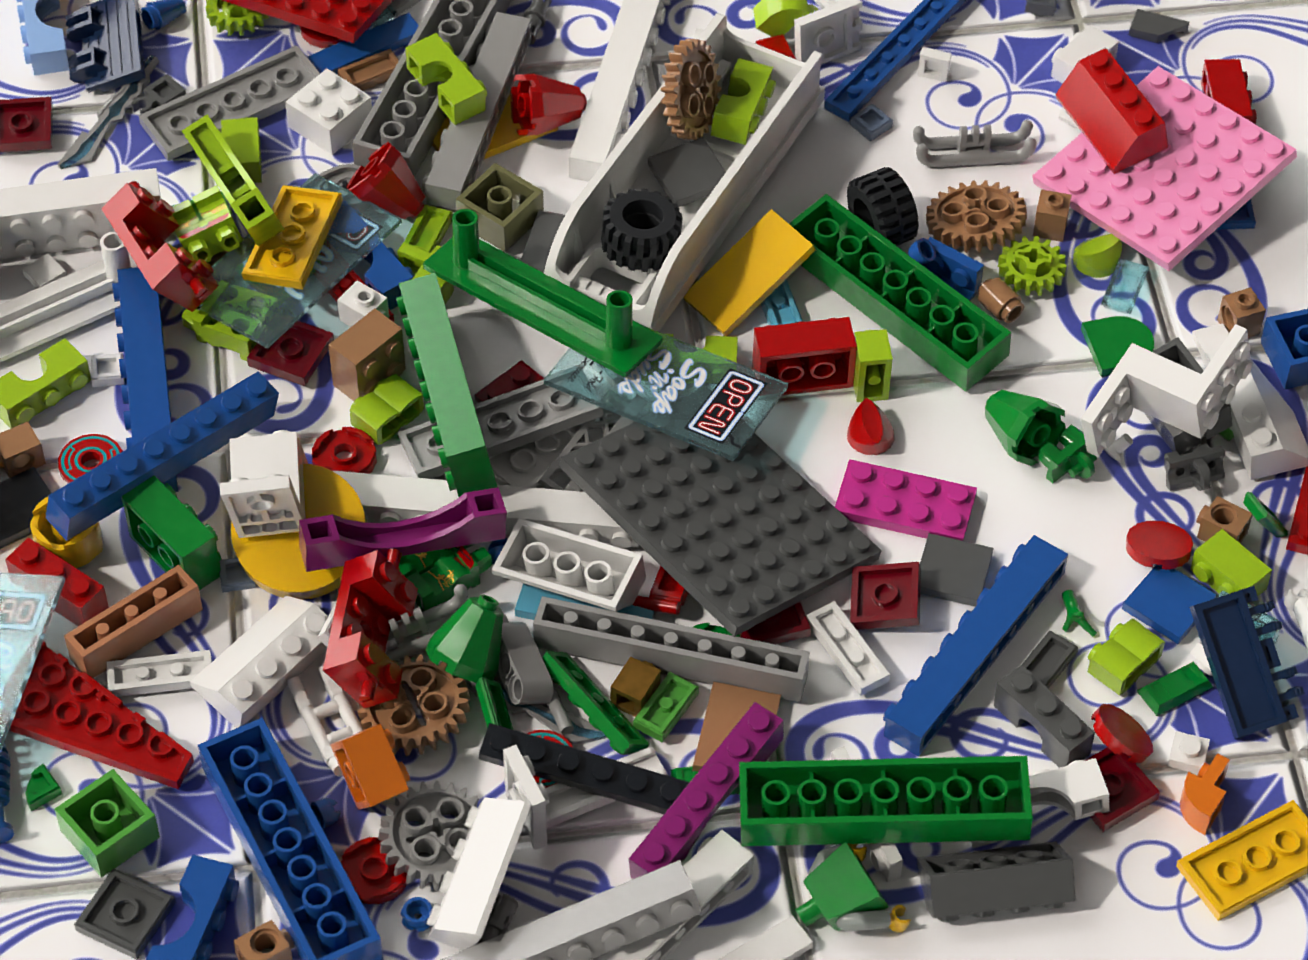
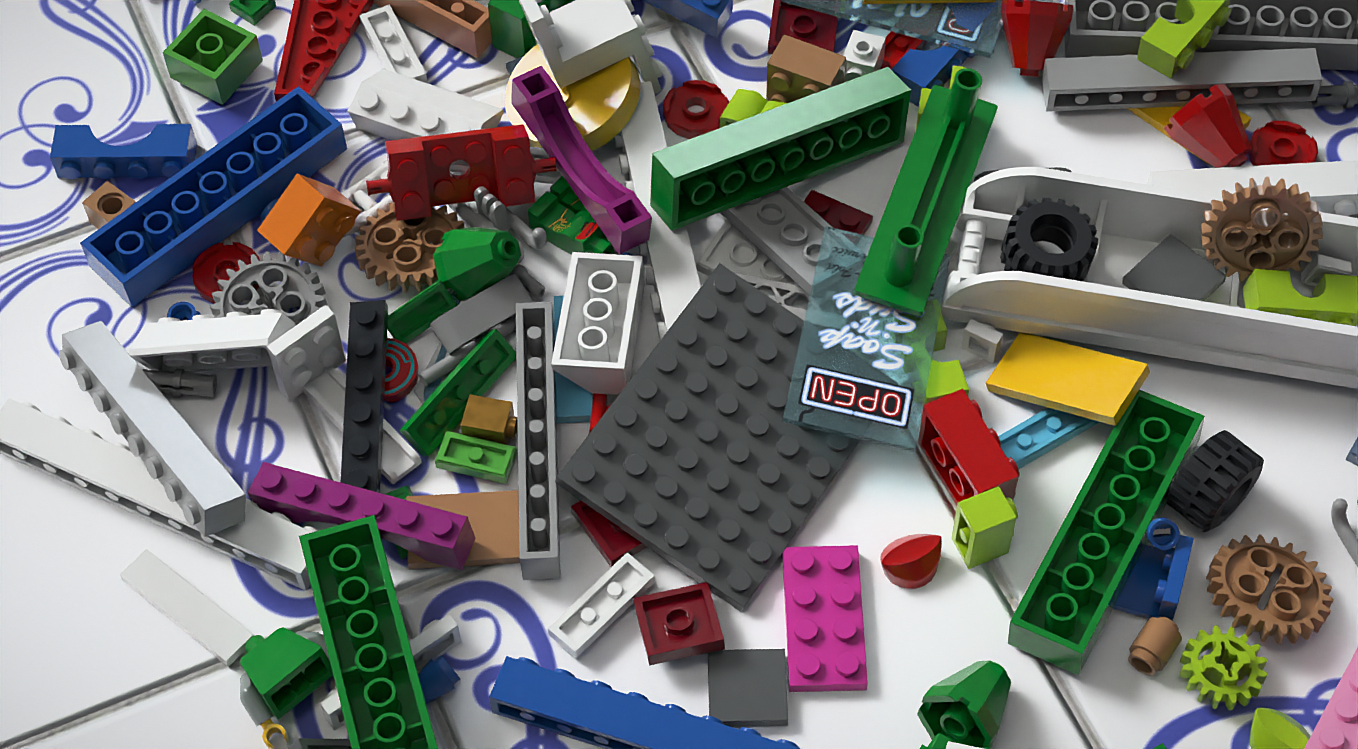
camera: 75 degrees right, 5 degrees up
(125, 913) = (137, 104): dark grey tile -> none
(429, 228) = (1011, 92): lime tile -> none
(503, 205) = (1055, 132): olive brick -> none
(571, 69) = (1282, 144): none -> red tile
(684, 320) = (982, 340): none -> white plate
(1052, 215) = (1311, 670): medium nougat brick -> none

